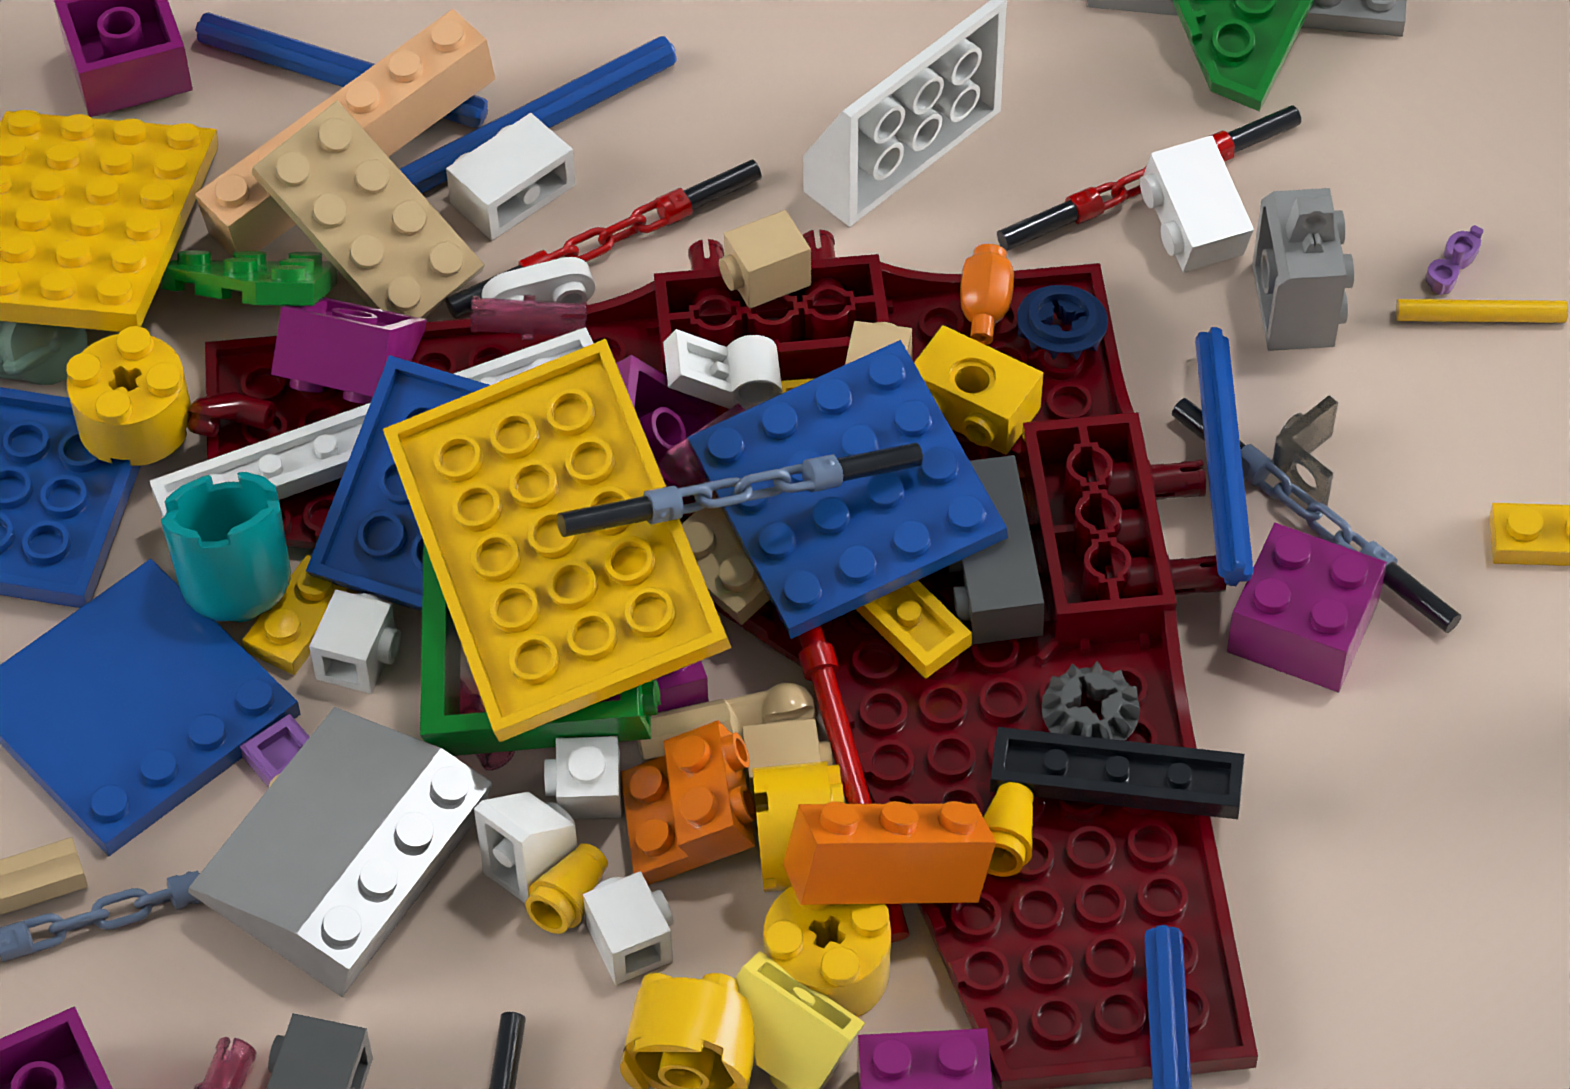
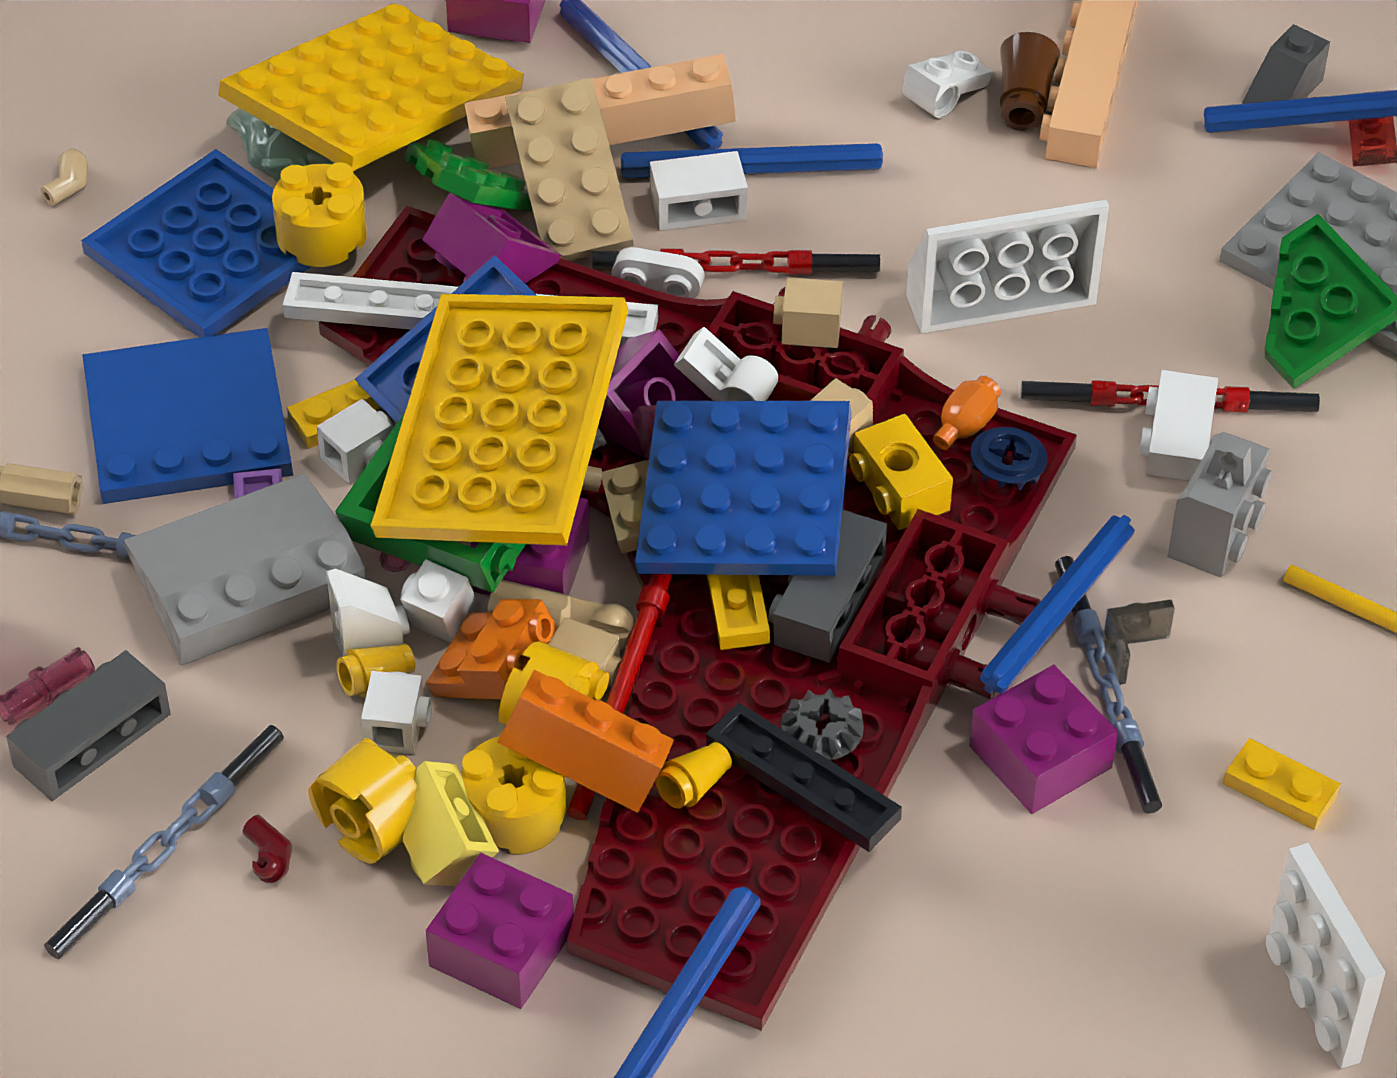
camera: 30 degrees right, 5 degrees down
(228, 546) = (308, 336): teal cylinder -> none
(231, 407) = (387, 252): dark red arm -> none
(527, 316) = (627, 281): clear pink pin -> none
(667, 504) = (579, 424): piece -> none
(1459, 253) = (1371, 555): medium lavender piece -> none

